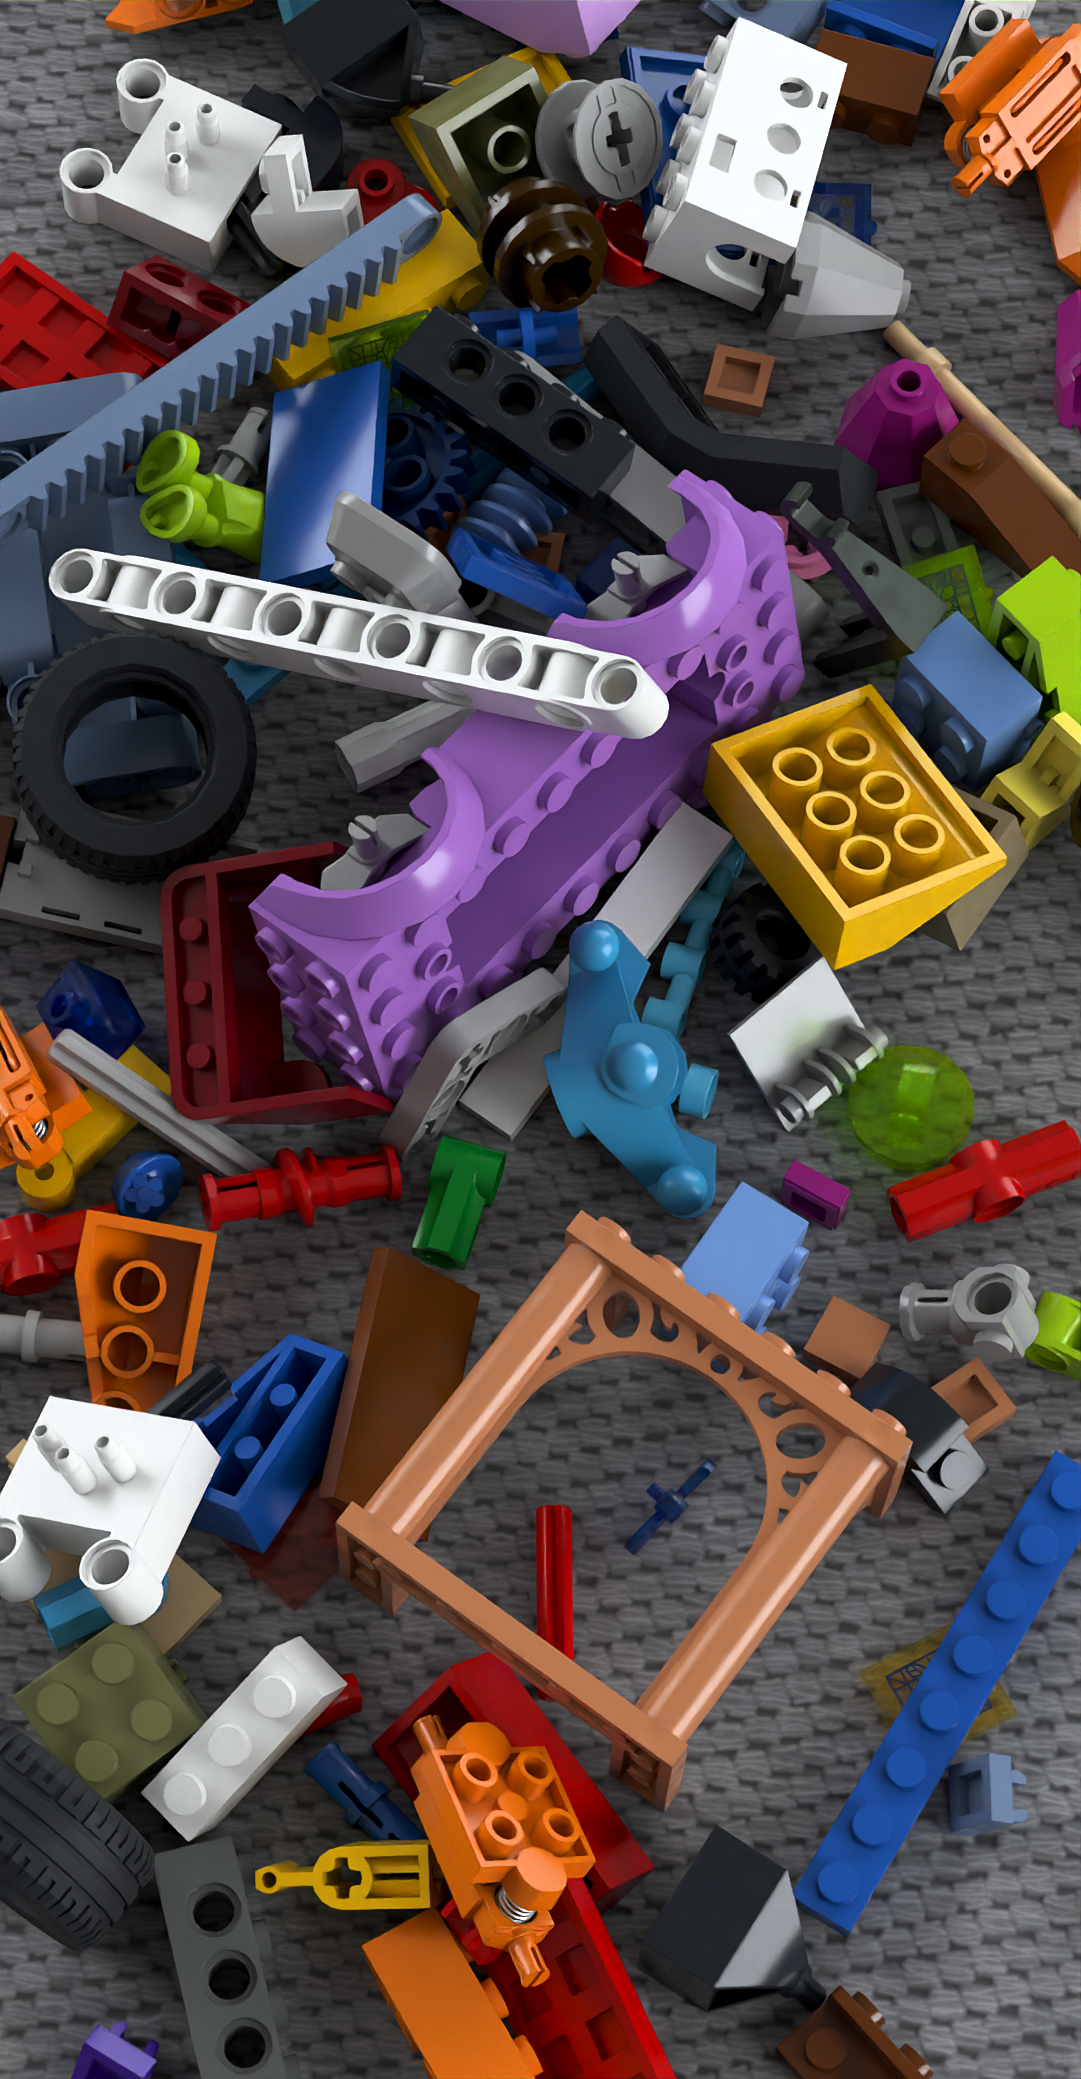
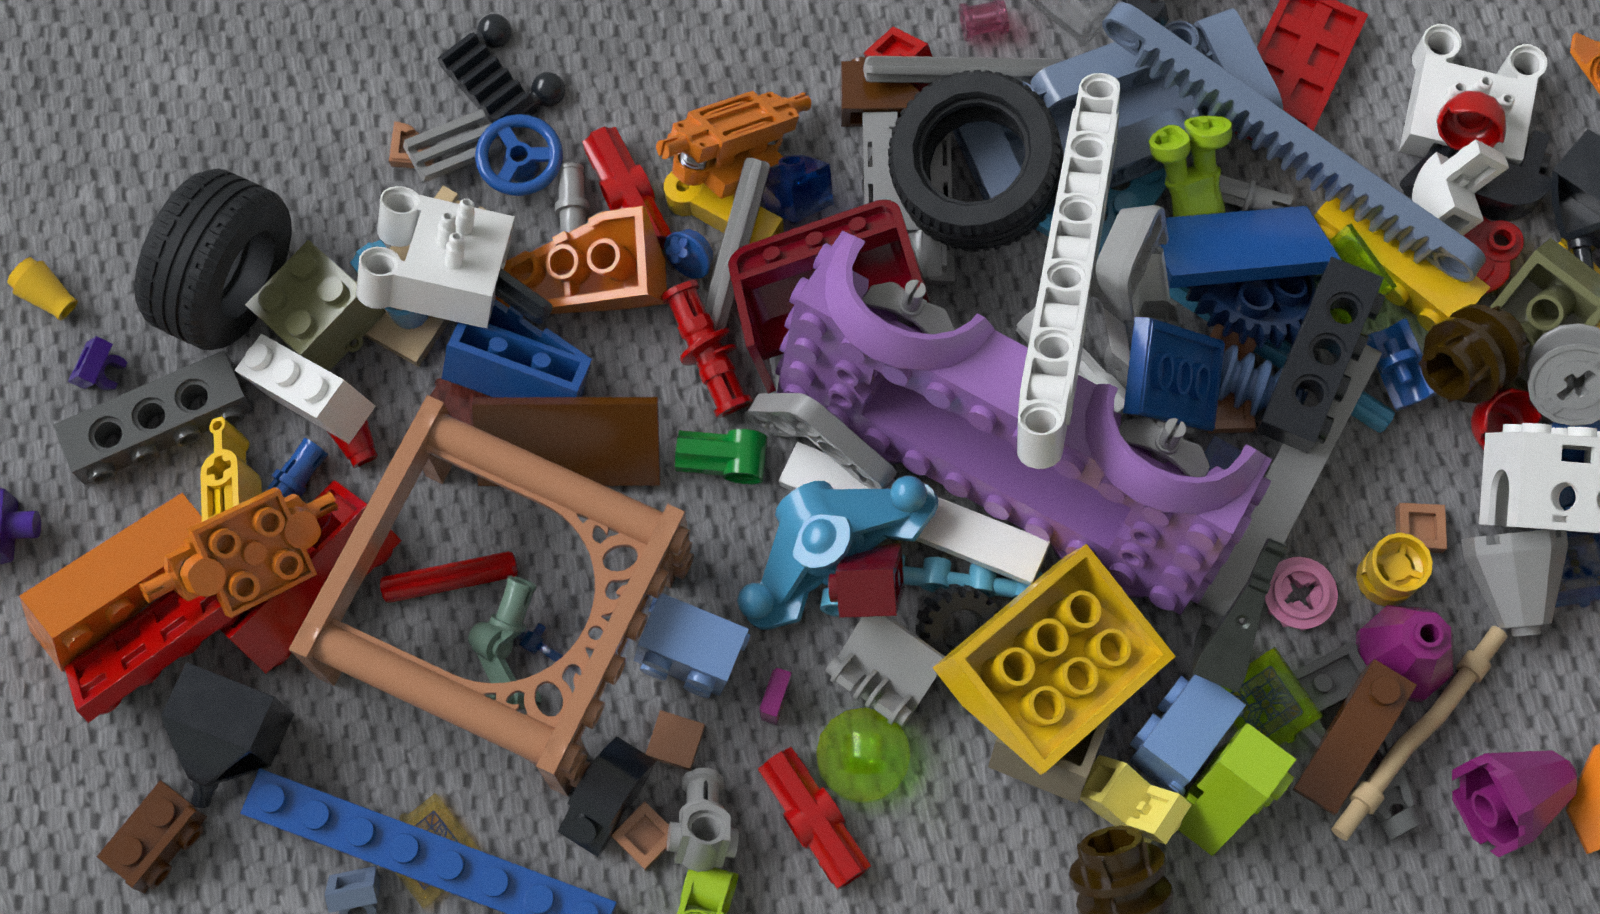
camera: 80 degrees right, 5 degrees up
(170, 306) = (1353, 119): dark red brick -> none
(226, 158) = (1471, 117): none -> red hair
(665, 1548) = (494, 639): none -> sand green pin
(682, 436) = (1345, 505): black piece -> none
(707, 1018) = (869, 582): none -> dark red slope
(797, 405) = (1402, 562): none -> yellow wheel

